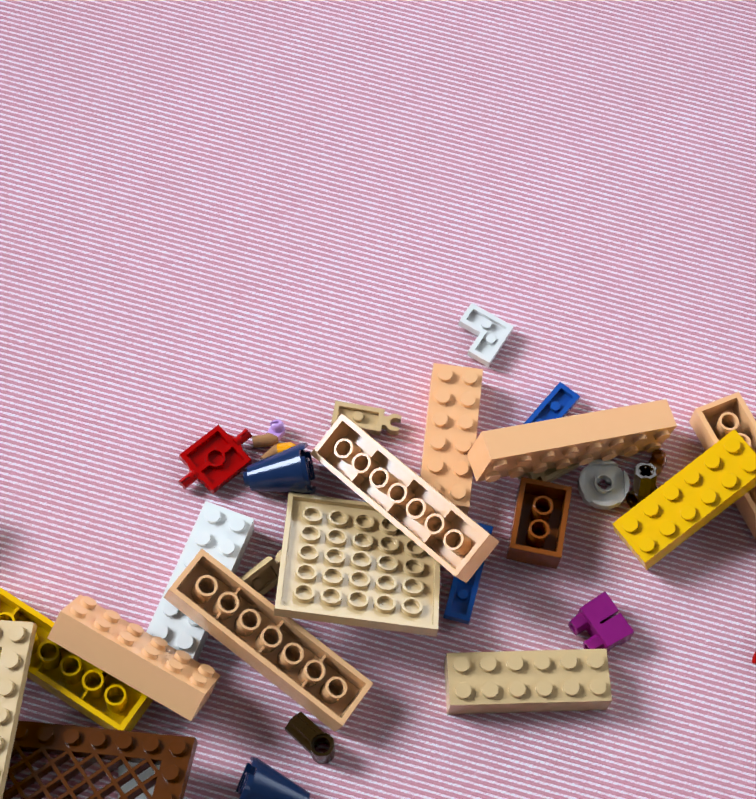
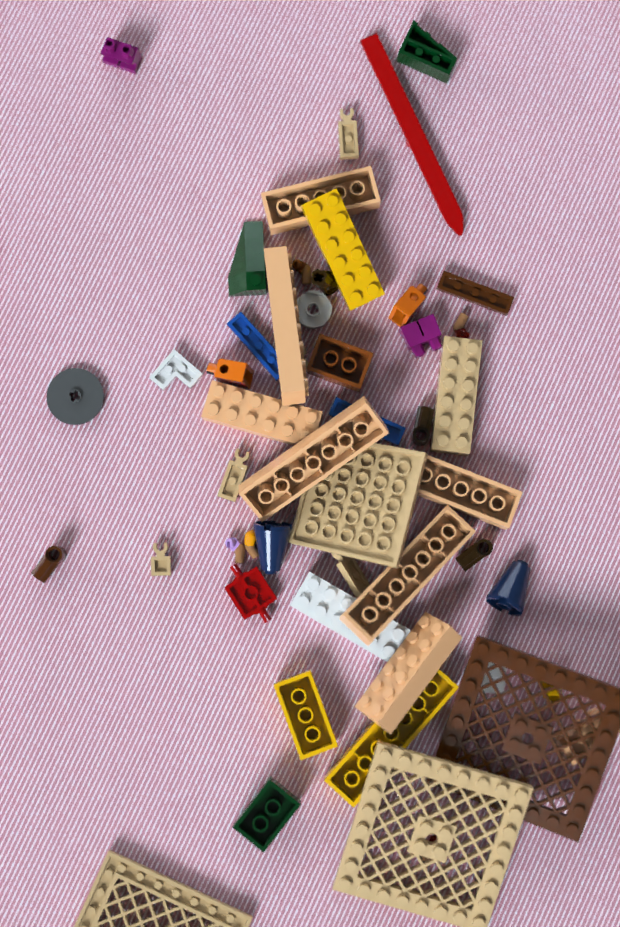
camera: 75 degrees left, 20 degrees up
(63, 543) = (305, 714): none -> yellow brick
(220, 226) = (47, 564): none -> reddish brown piece
(237, 350) = (160, 563): none -> tan plate
(396, 709) = (469, 493): none -> light nougat brick
(444, 239) = (76, 411): none -> dark grey piece
(476, 641) = (422, 424): none -> dark brown piece
(497, 388) = (232, 373): none -> orange torso
(624, 676) = (459, 328): none -> arm
(625, 392) = (247, 270): none -> dark green wedge
(639, 599) = (408, 305): none -> orange torso
(676, 690) = (475, 293): none -> reddish brown plate

